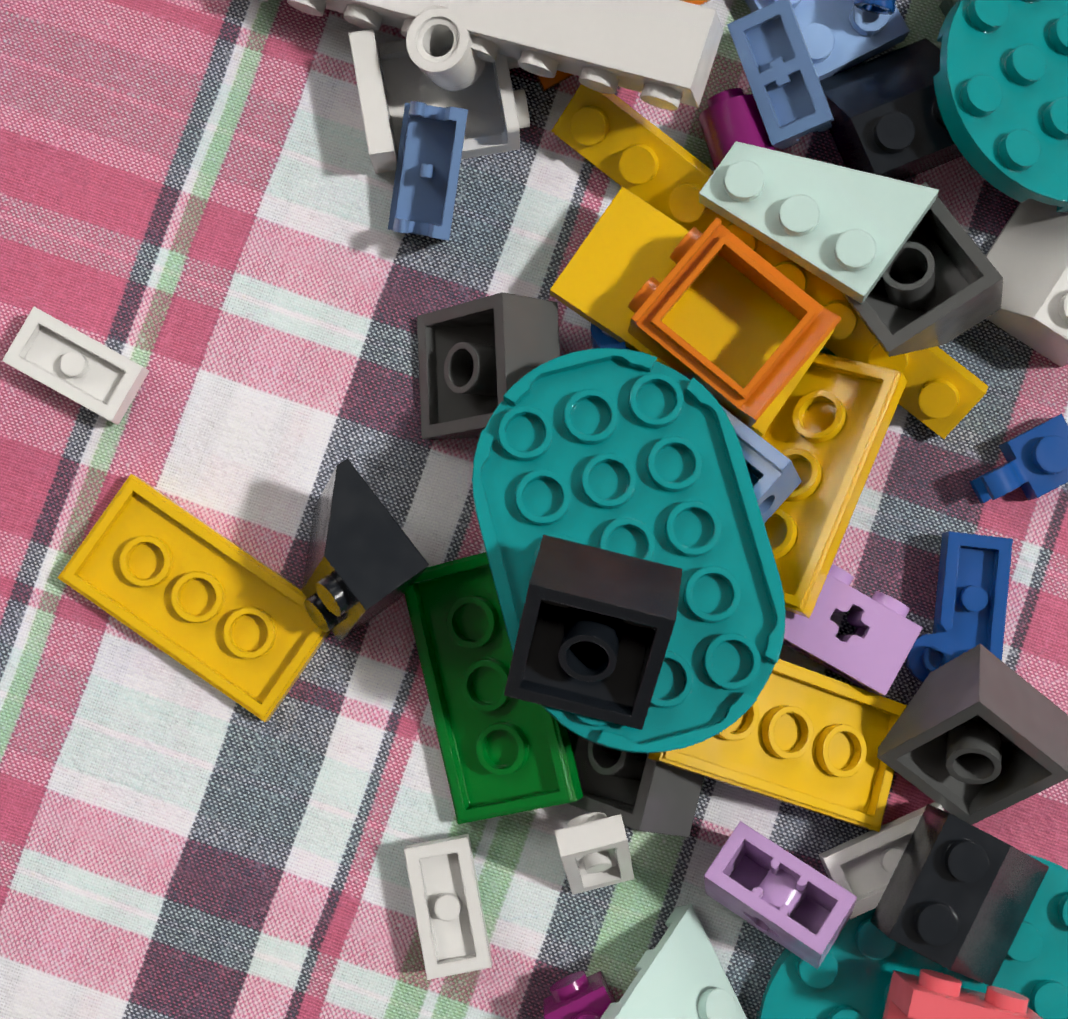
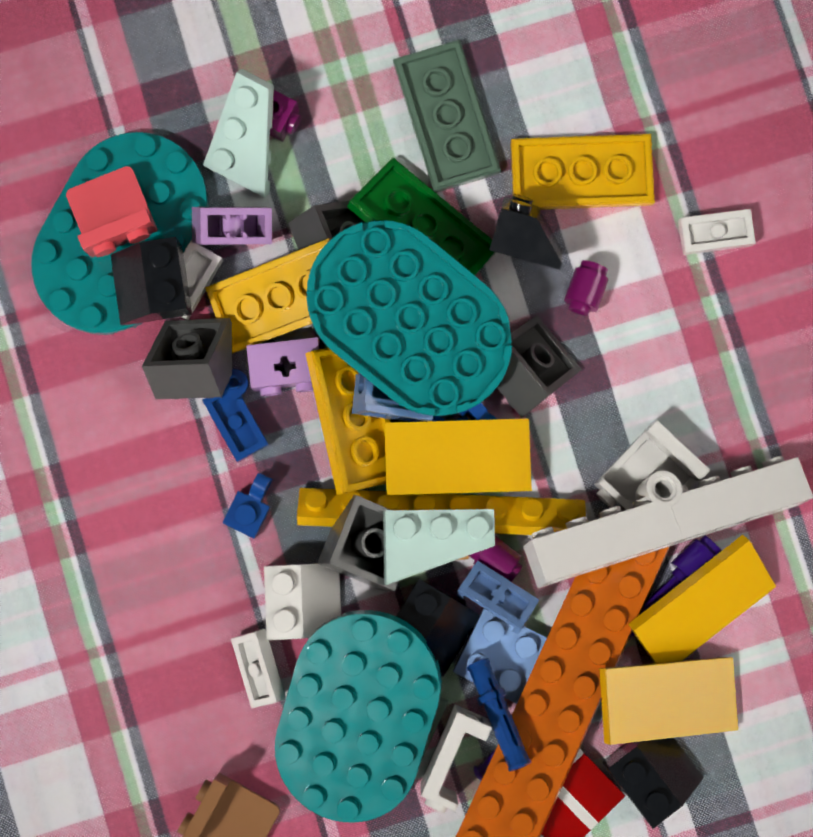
camera: 140 degrees right, 0 degrees up
(322, 421) = (586, 288): none -> magenta brick
(331, 829) = (446, 116): none -> sand green tile
(427, 170) = (625, 435): medium blue hinge -> none
(448, 906) = (371, 119): white plate -> none
(594, 632) = (398, 265): black slope -> none
(594, 852) = (325, 185): white plate -> none
(691, 259) = (476, 444): orange window -> none

